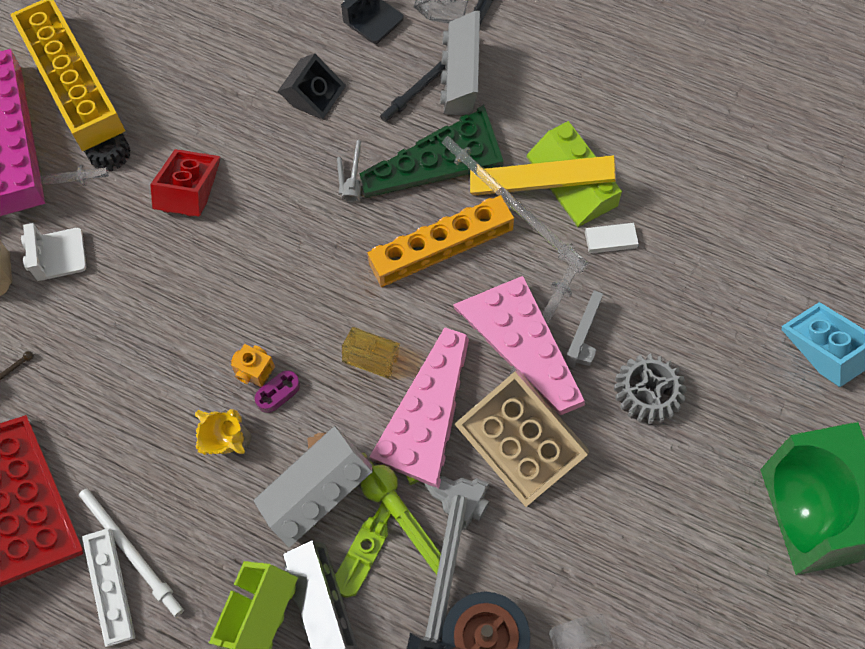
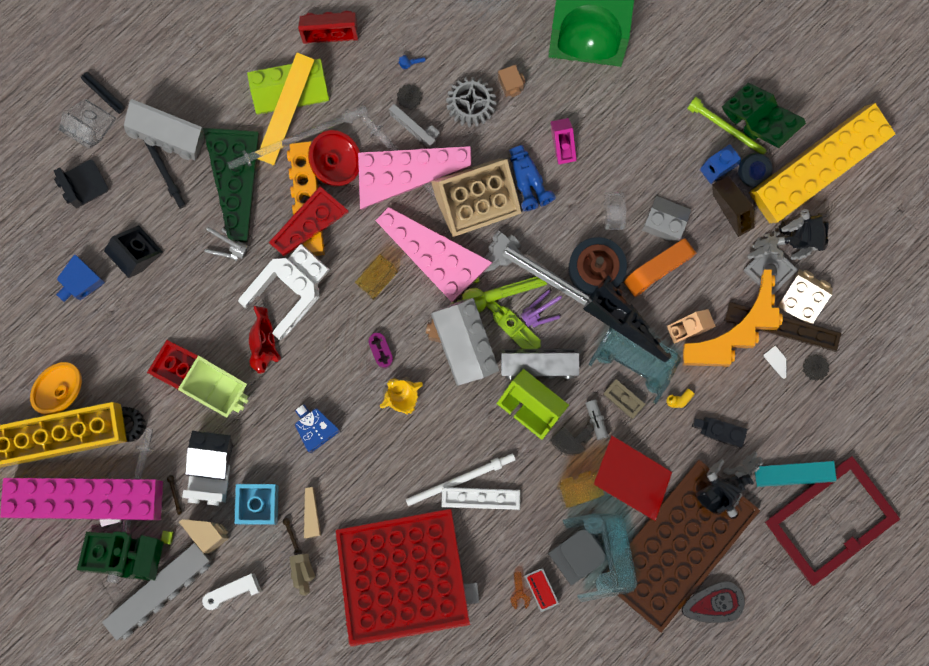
camera: 70 degrees left, 15 degrees up
(36, 311) = (256, 504): none -> medium azure brick
(42, 380) = (311, 519): none -> tan piece
(53, 215) = (170, 479): none -> dark brown hinge
(86, 240) = (208, 455): none -> slope
(126, 66) = (56, 388): none -> light orange dish
(152, 346) = (314, 428): none -> blue torso
(167, 212) = (214, 387): none -> yellowish green piece
(245, 251) = (262, 341): none -> red animal
(252, 365) = (360, 354): light orange brick -> none
(261, 47) = (78, 280): none -> blue torso
(338, 261) = (301, 273): none -> white plate
(384, 569) = (531, 315): none -> medium lavender plant
(409, 245) = (312, 218): none -> red wing
(520, 247) = (343, 156): none -> red dish
(579, 495) = (528, 176): none -> blue piece
(611, 238) = (348, 81): white tile -> none
(624, 314) = (409, 96): none -> clear smoke piece
(649, 527) = (563, 140): none -> dark pink slope
(665, 295) = (405, 63): none -> blue hand
(667, 190) = (328, 27): none -> red slope
(702, 429) = (511, 81): none -> medium nougat brick

